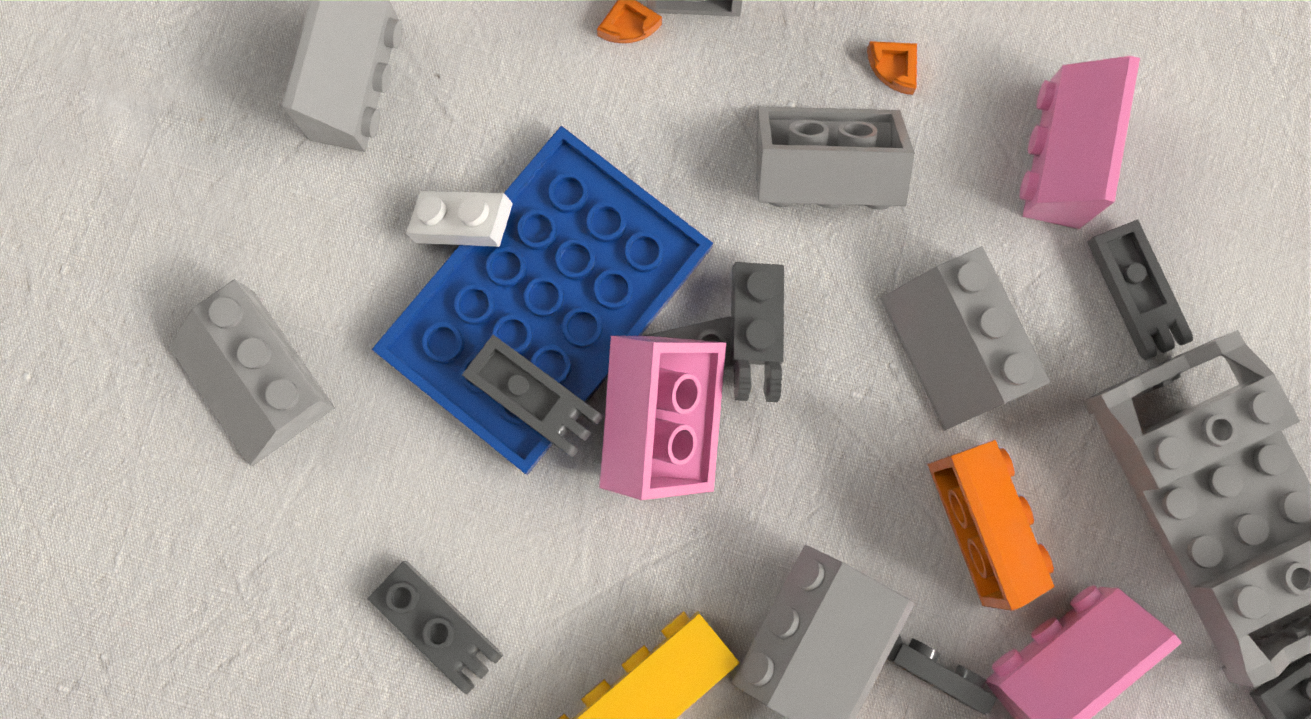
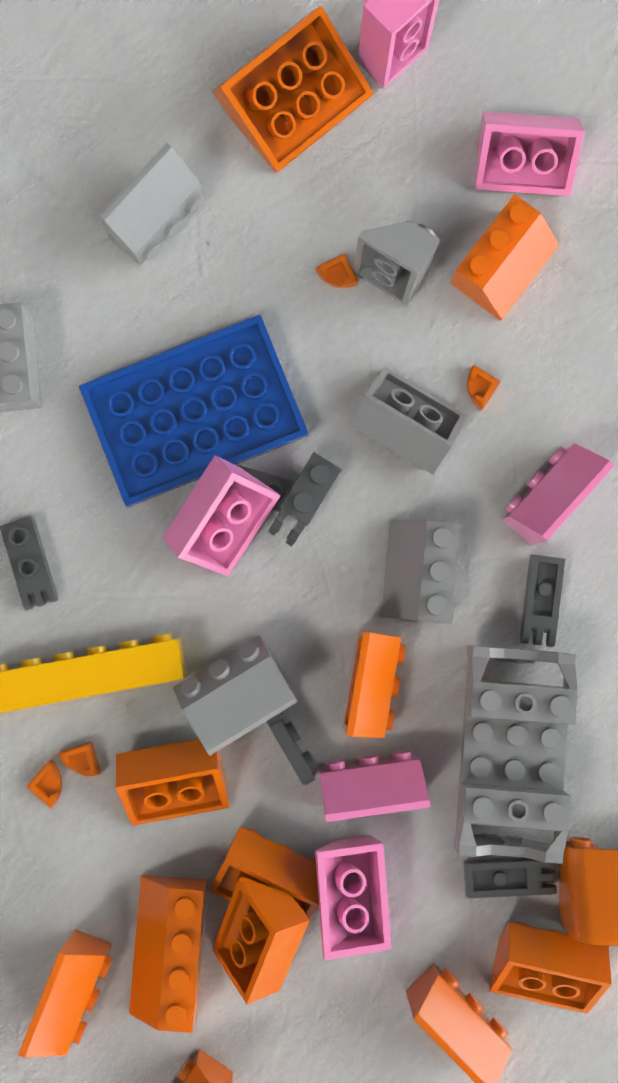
camera: 25 degrees right, 5 degrees up
(459, 218) = (170, 337): white plate -> none
(530, 394) = (151, 462): dark grey hinge -> none

